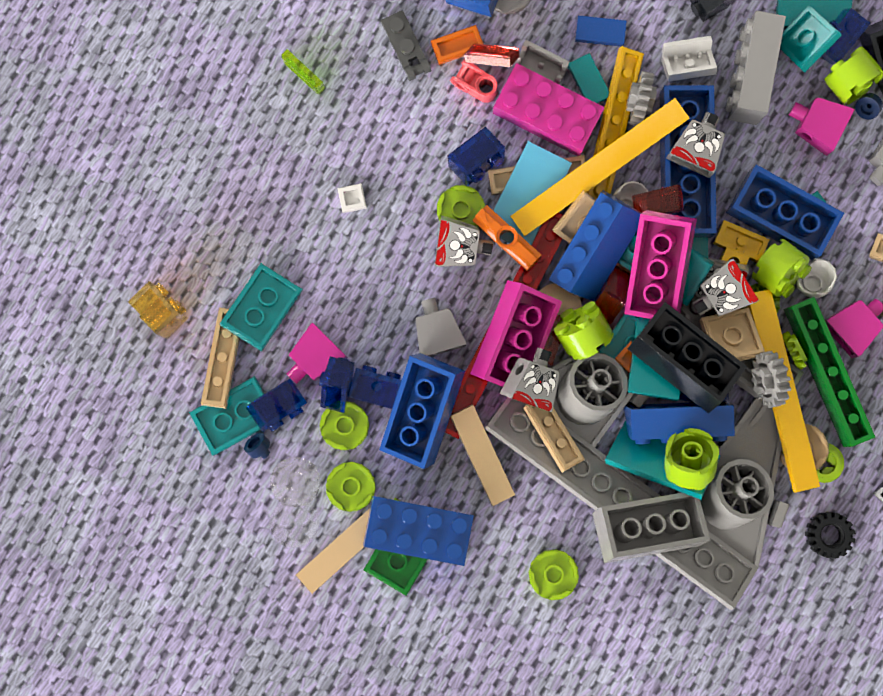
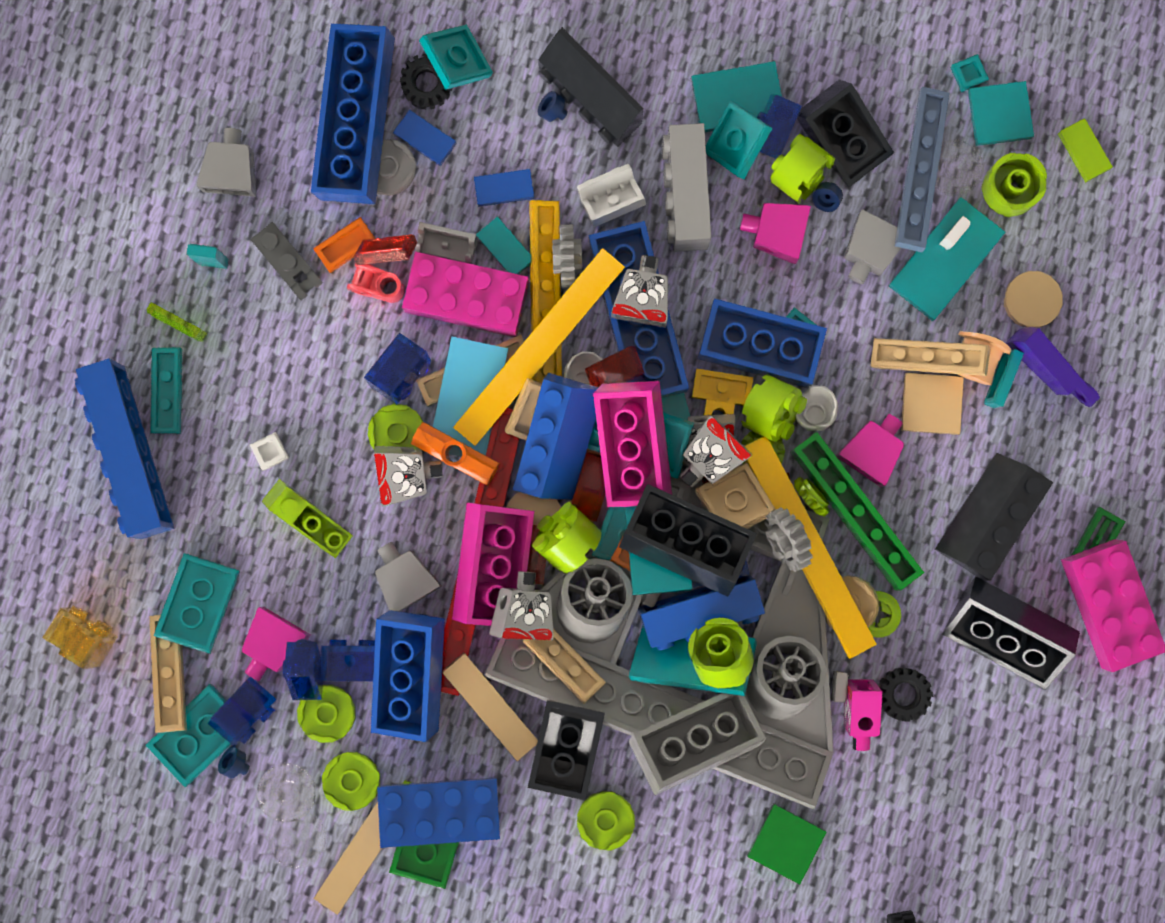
camera: 15 degrees left, 0 degrees up
(234, 164) = (124, 449): none -> blue brick
(279, 126) = (166, 390): none -> teal tile
(343, 23) = (207, 256): none -> teal tile
(369, 260) = (306, 518): none -> lime slope
(537, 506) = (566, 750): none -> black slope
(699, 633) = (786, 844): none -> green tile
(793, 540) = (862, 701): none -> dark pink torso

